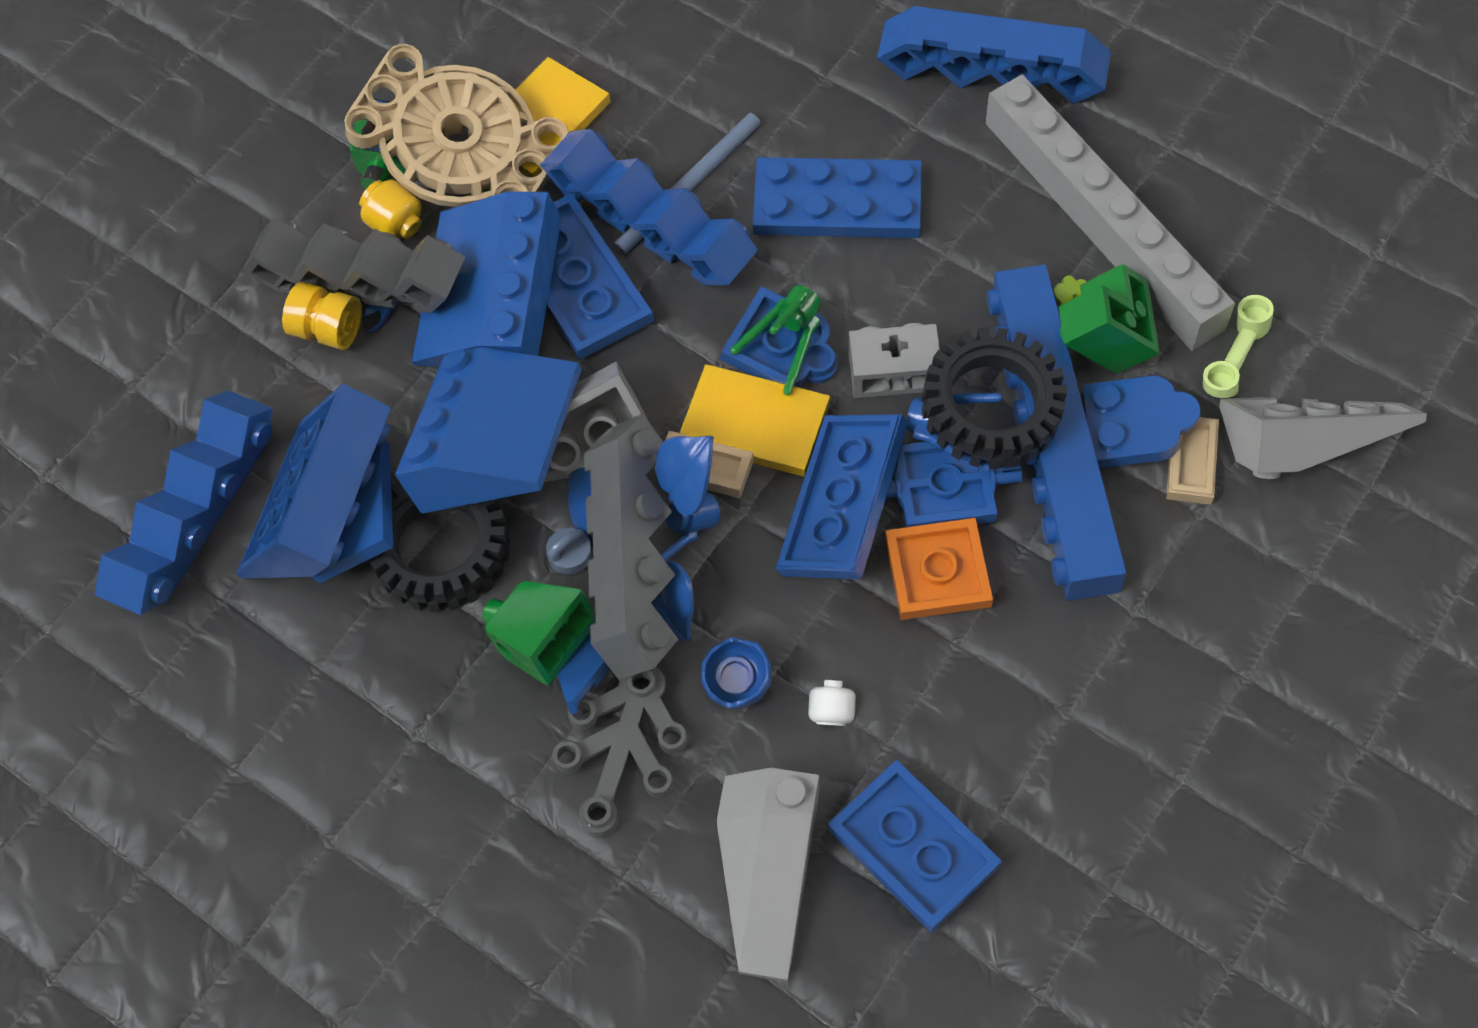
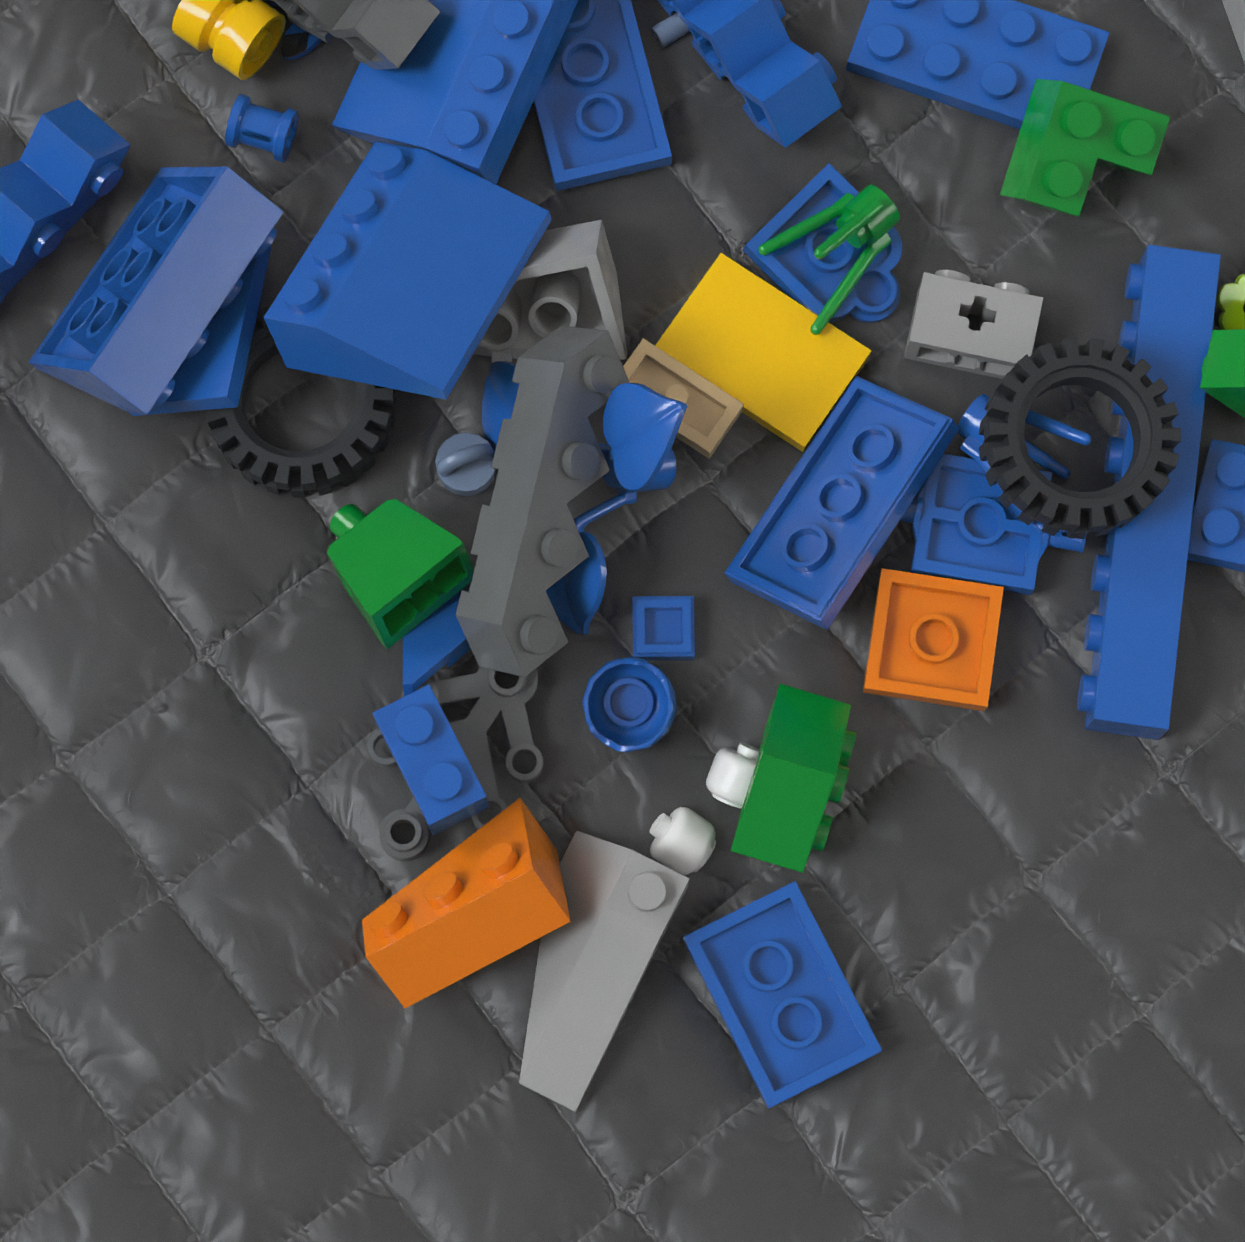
camera: 10 degrees right, 15 degrees up
(364, 374) = (261, 128): none -> blue bush
(602, 748) = (431, 760): none -> blue brick
(660, 850) = (469, 908): none -> orange wedge
(744, 617) = (663, 628): none -> blue tile
(805, 756) = (682, 840): none -> white piece
(872, 682) = (794, 777): none -> green brick
(919, 220) = (1069, 133): none -> green brick

